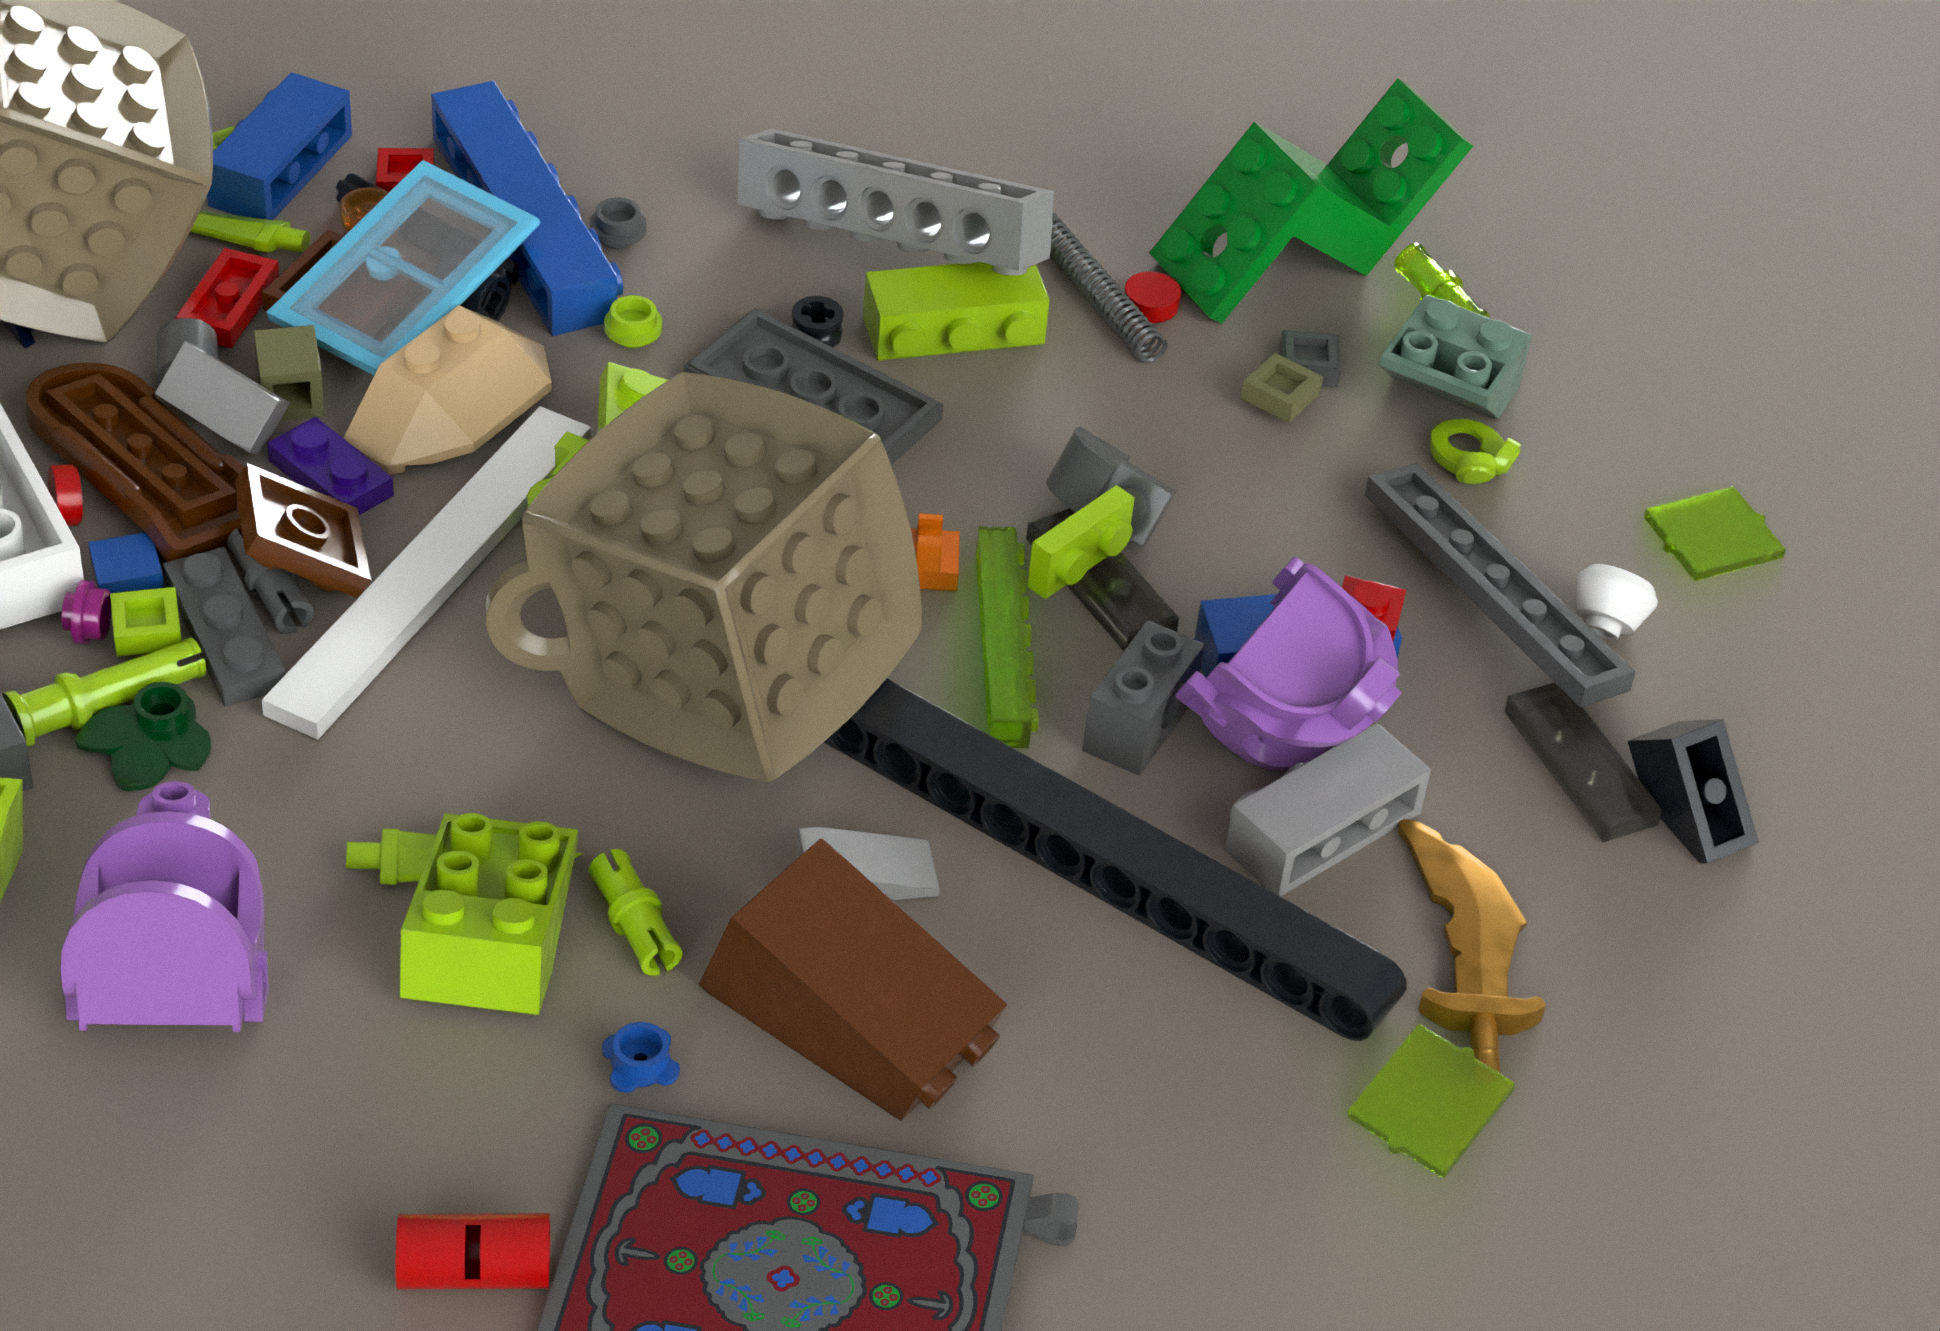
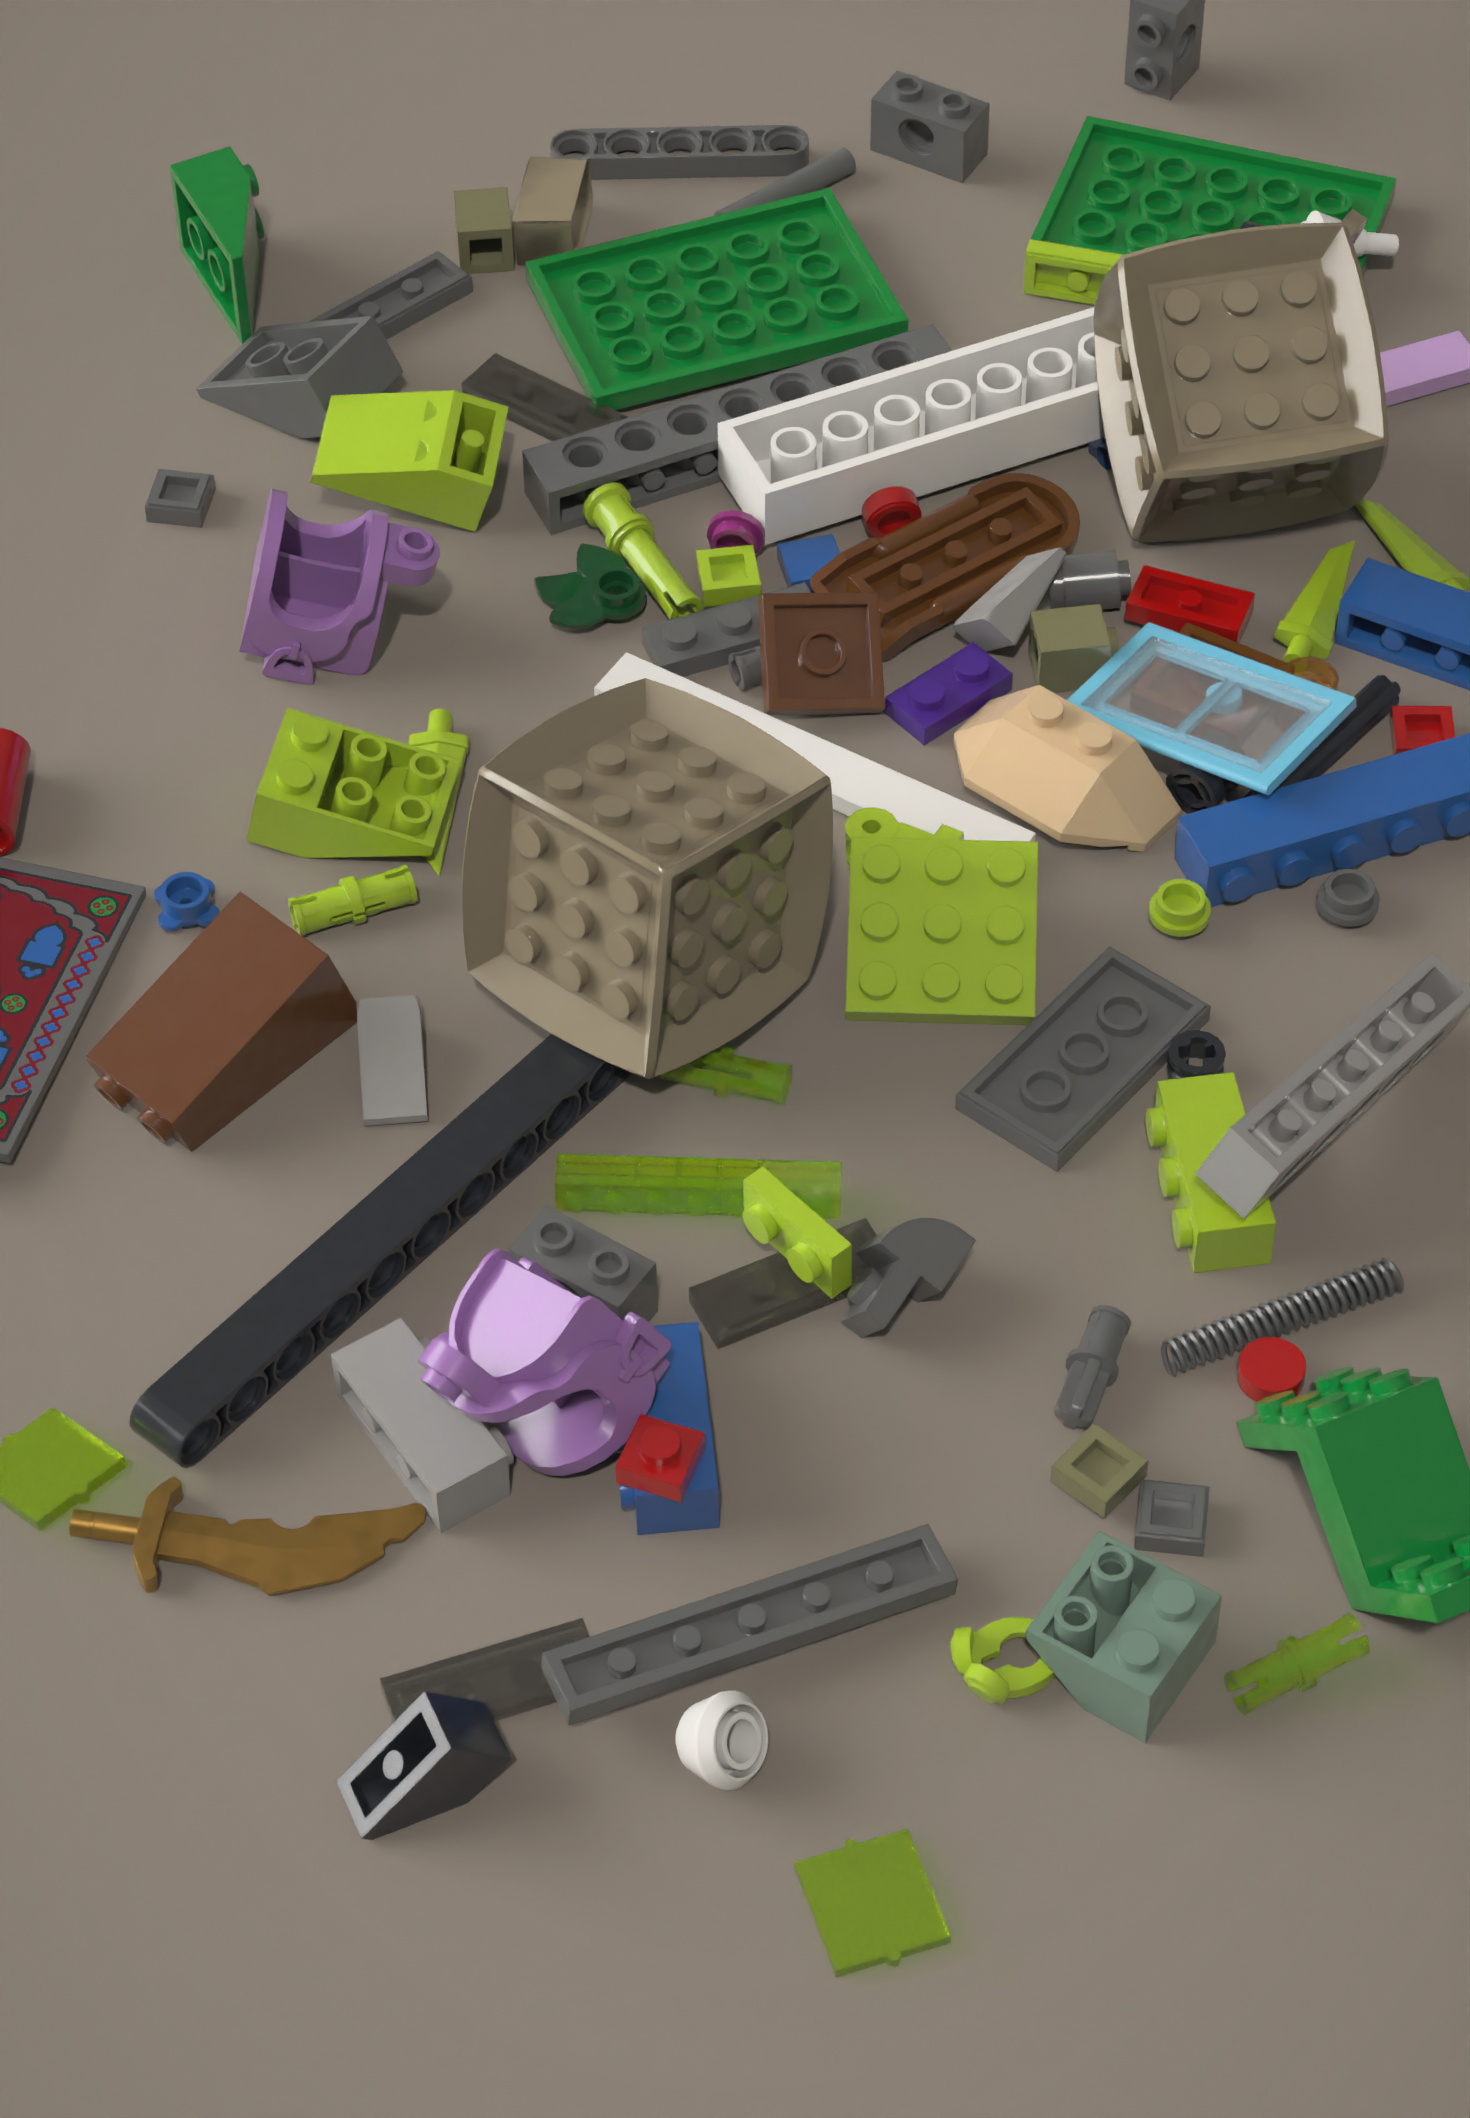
camera: 100 degrees right, 5 degrees up
(936, 553) = (821, 1132): orange tile -> none
(1172, 391) = (1092, 1366): none -> dark grey axle

